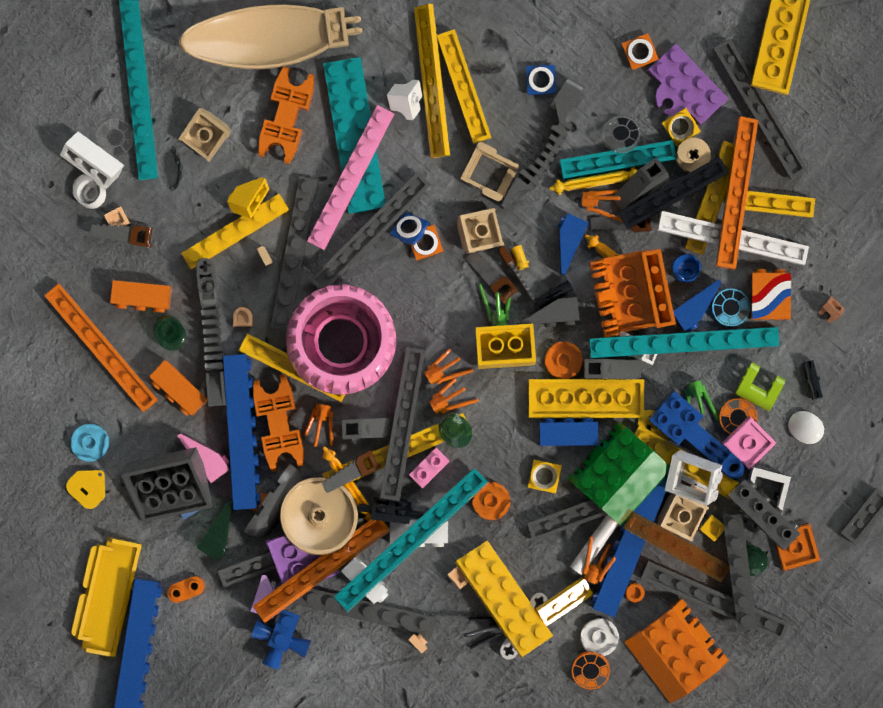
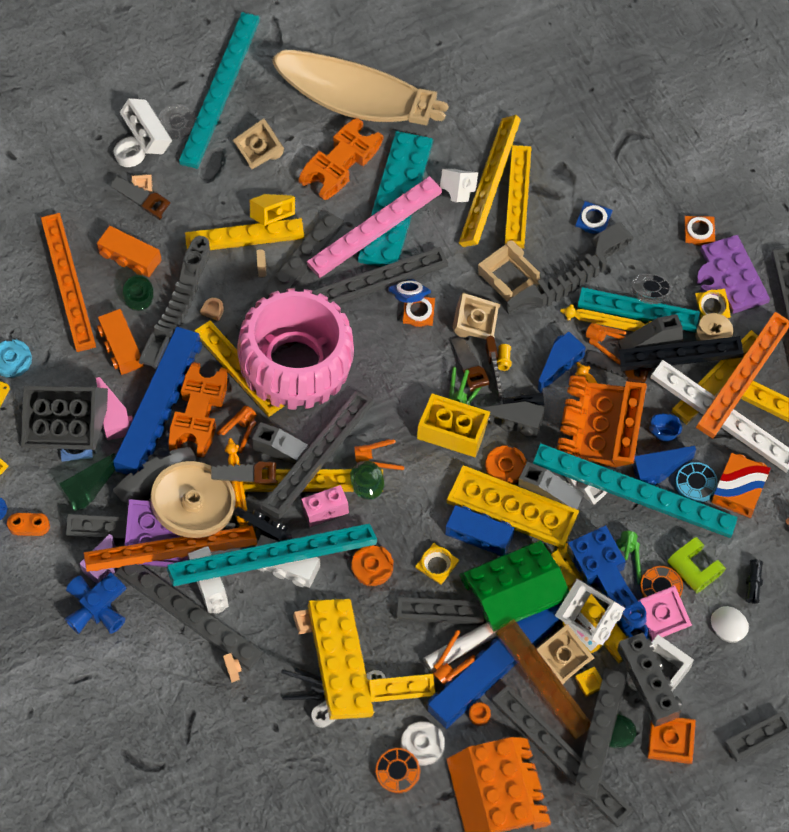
camera: 25 degrees right, 25 degrees down
(435, 373) = (372, 425): orange plant -> none

